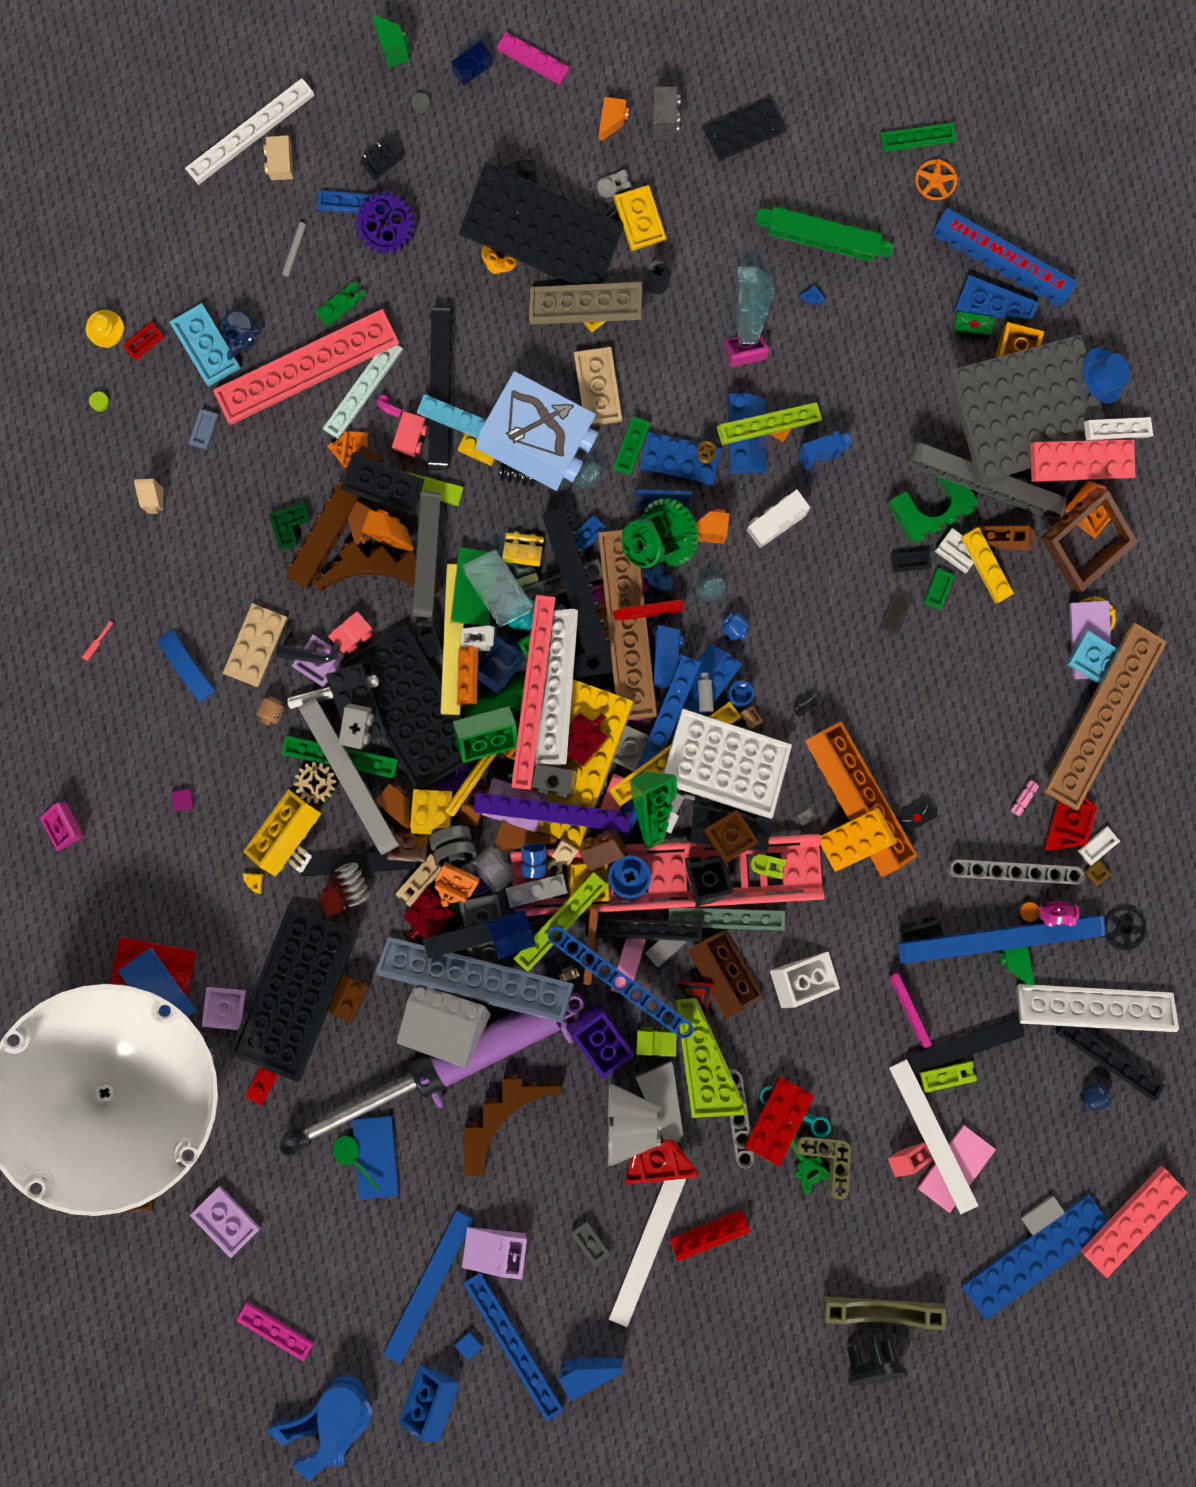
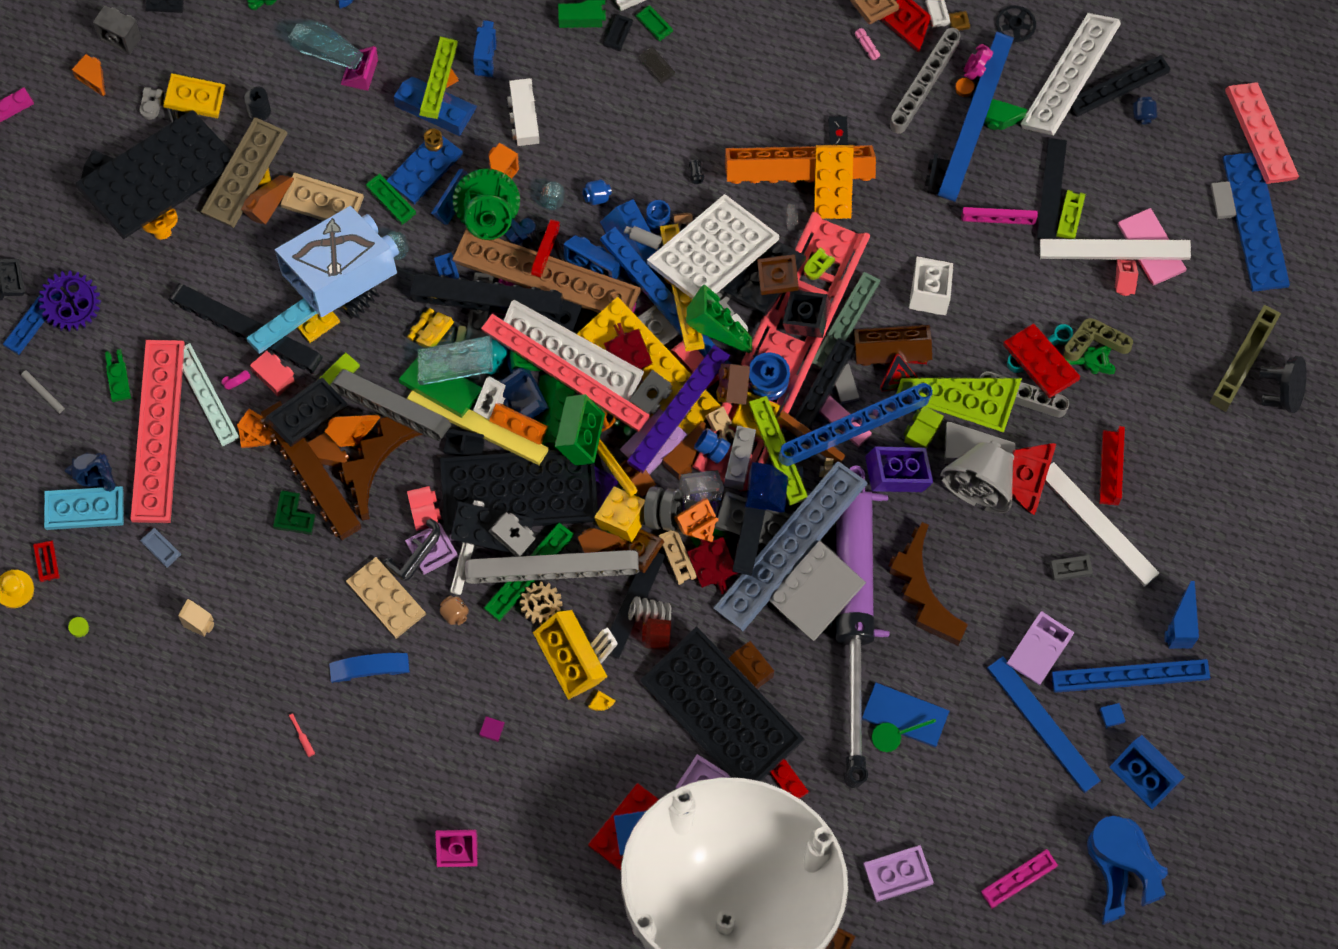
camera: 65 degrees left, 15 degrees down
(569, 336) = (264, 201): none -> dark orange slope

